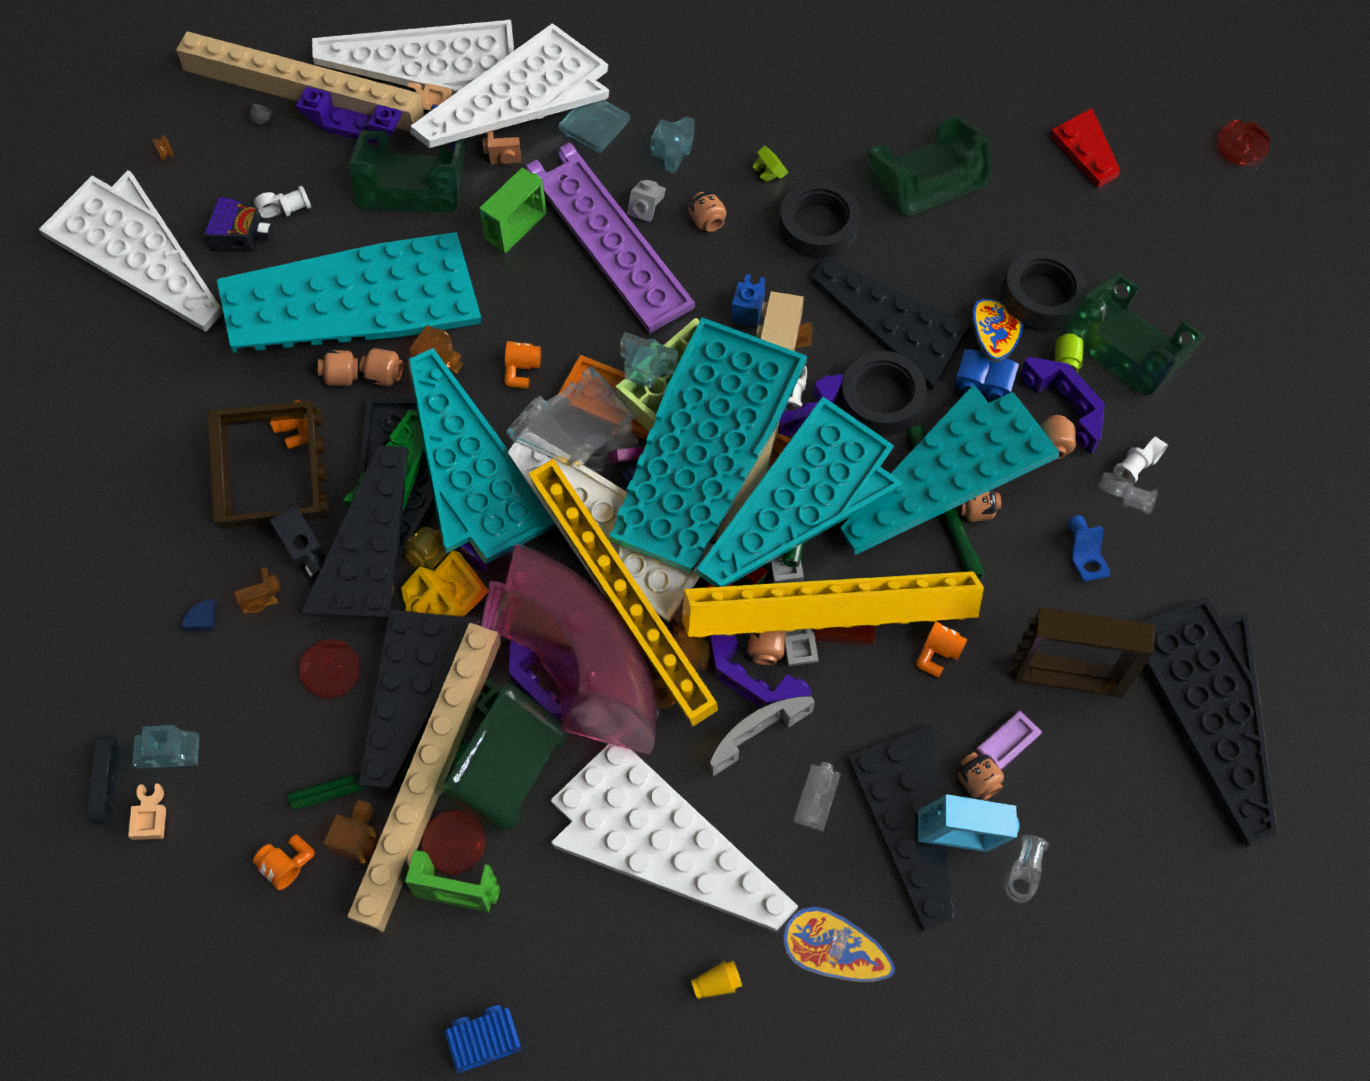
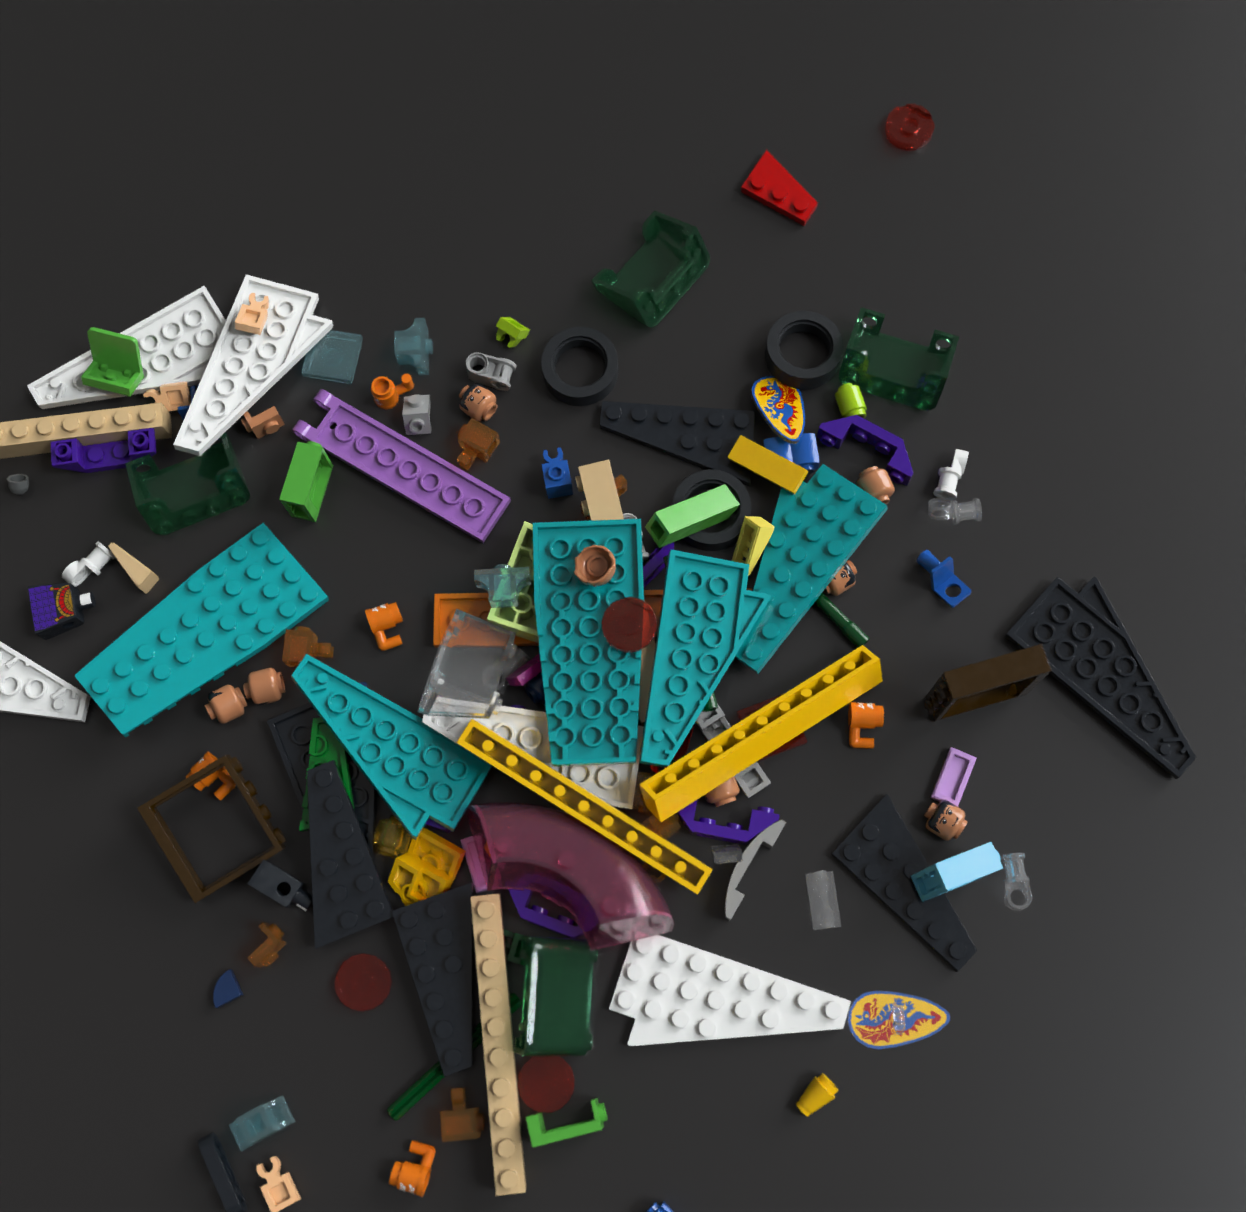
camera: 20 degrees left, 10 degrees up
(322, 225) = (139, 573): none -> tan slope
(399, 43) = (115, 362): none -> bright green bracket
(539, 55) = (252, 316): none -> light nougat plate
(626, 169) = (386, 393): none -> orange piece
(688, 243) = (477, 442): none -> clear orange brick
(733, 189) = (495, 371): none -> light grey piece
(739, 702) = (726, 853): none -> clear tile
(741, 374) = (595, 565): none -> nougat hair
(747, 442) = (629, 624): none -> clear red tile
(860, 382) = (692, 515): none -> brick
(909, 432) = (755, 536): none -> light yellow slope
(958, 371) = (767, 464): none -> yellow tile

